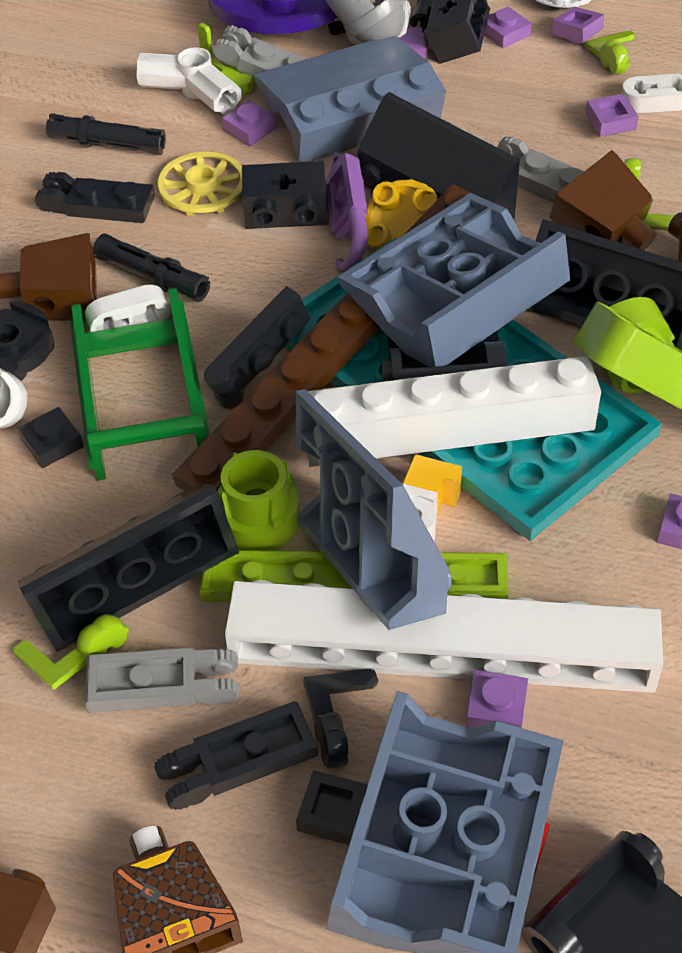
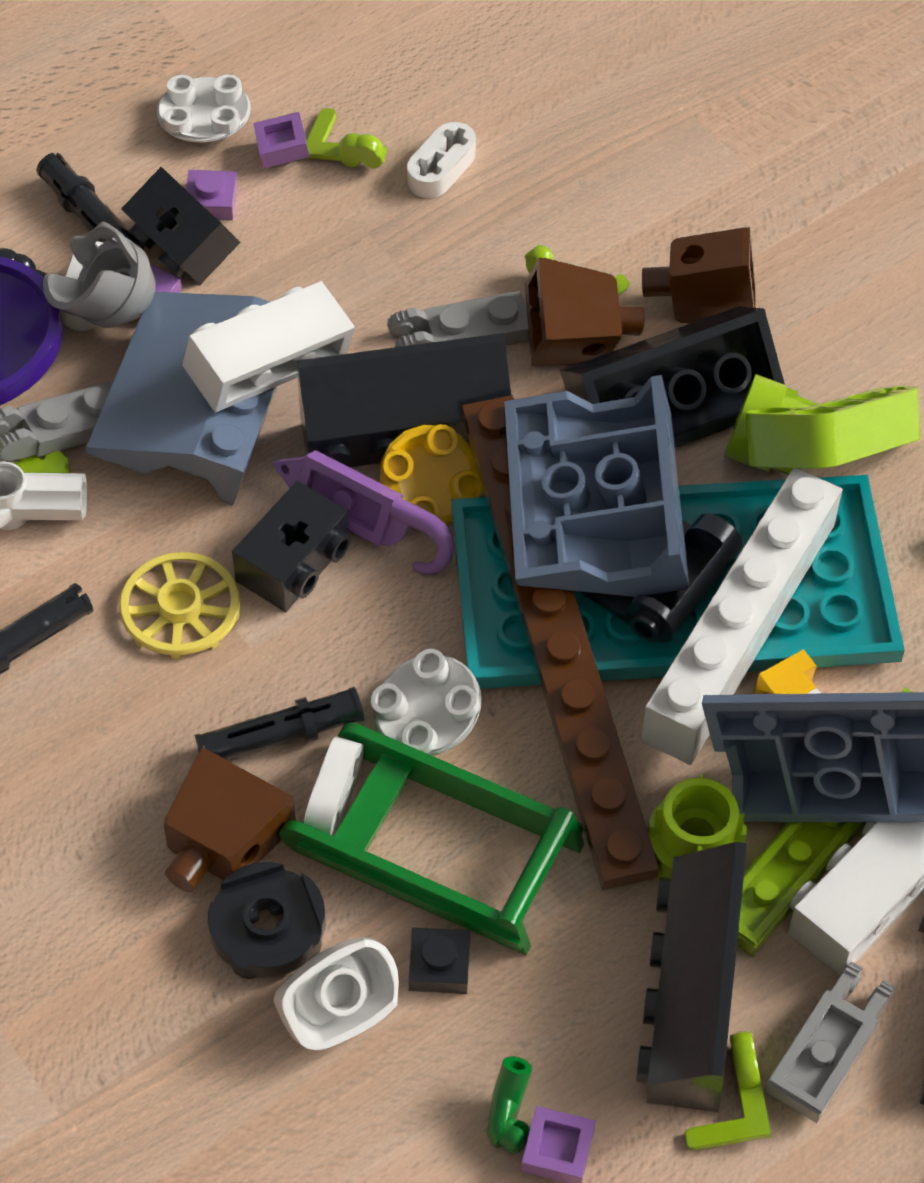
camera: 55 degrees left, 5 degrees up
(95, 198) = (110, 711): black hinge -> none
(227, 316) = (428, 703): none -> white dish
(249, 123) = (128, 503): medium lavender plate -> none
(256, 347) = (511, 710): black plate -> none
(369, 69) = (263, 343): none -> white brick
(611, 115) = (441, 216): medium lavender plate -> none

